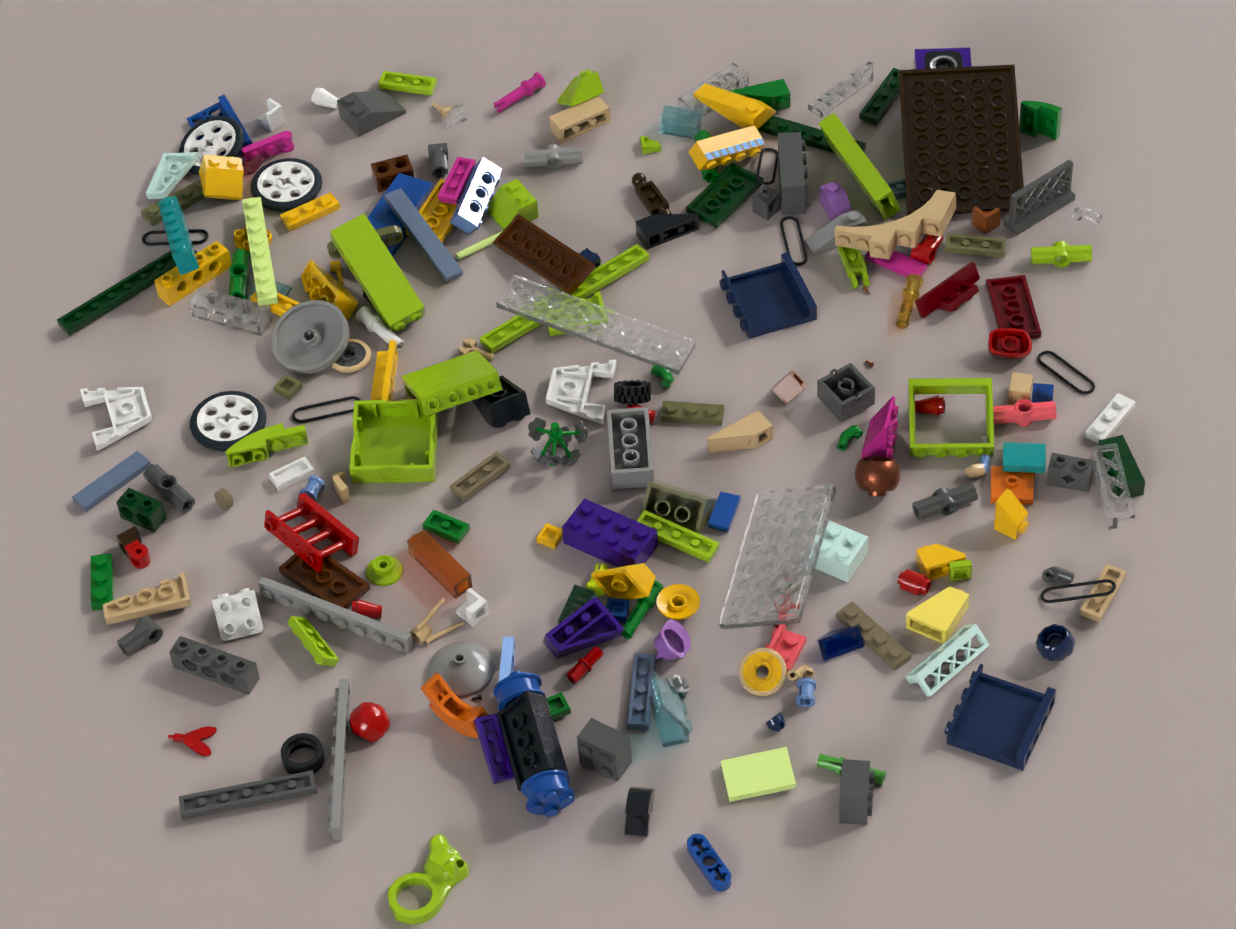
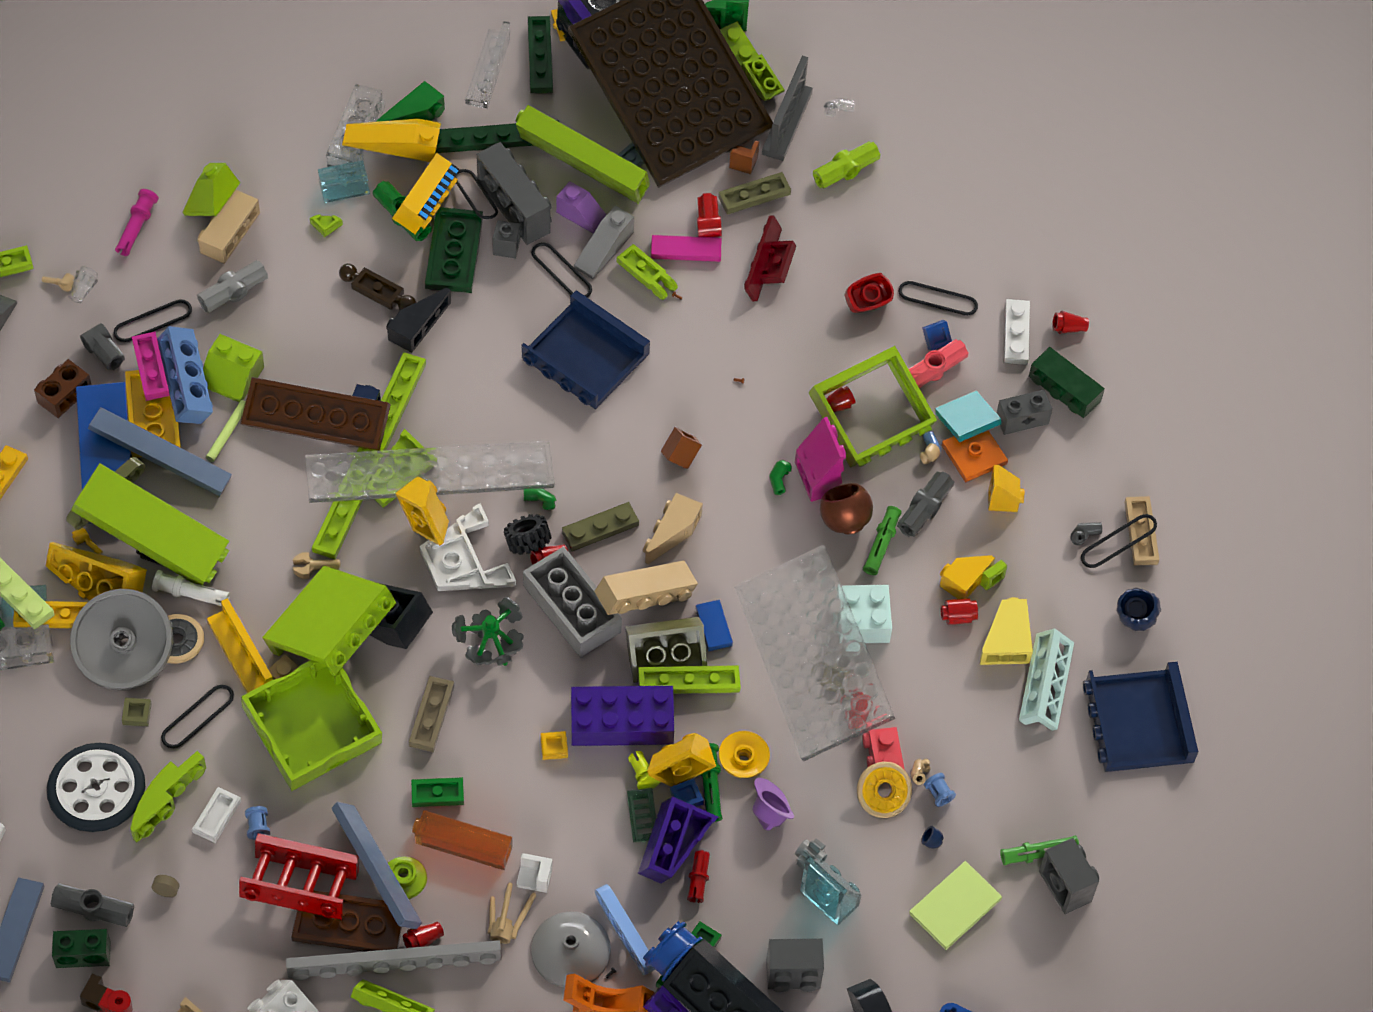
camera: 40 degrees left, 10 degrees up
(340, 486) = (285, 804): tan slope -> none
(366, 549) = (376, 865): none -> sand blue tile
(490, 152) = (151, 312): none -> black piece
(570, 343) = (424, 509): none -> yellow slope
(640, 692) = (774, 875): sand blue tile -> none
(687, 459) = (646, 587): none -> tan brick
(840, 642) = (931, 714): clear blue slope -> none
(845, 392) = (747, 427): dark grey brick -> none
(874, 636) = (957, 690): dark tan plate -> none
(899, 507) = (886, 531): none -> bright green pin
(906, 231) = (682, 213): tan arch -> none
(910, 295) = (729, 280): clear yellow pin -> none
(1013, 304) = (837, 247): dark red tile -> none
(1020, 387) = (912, 340): tan brick -> none
(1037, 152) = (754, 65): none -> lime slope
(1105, 488) = (1070, 414): clear fence -> none
(1154, 428) = (1068, 323): none -> red cone

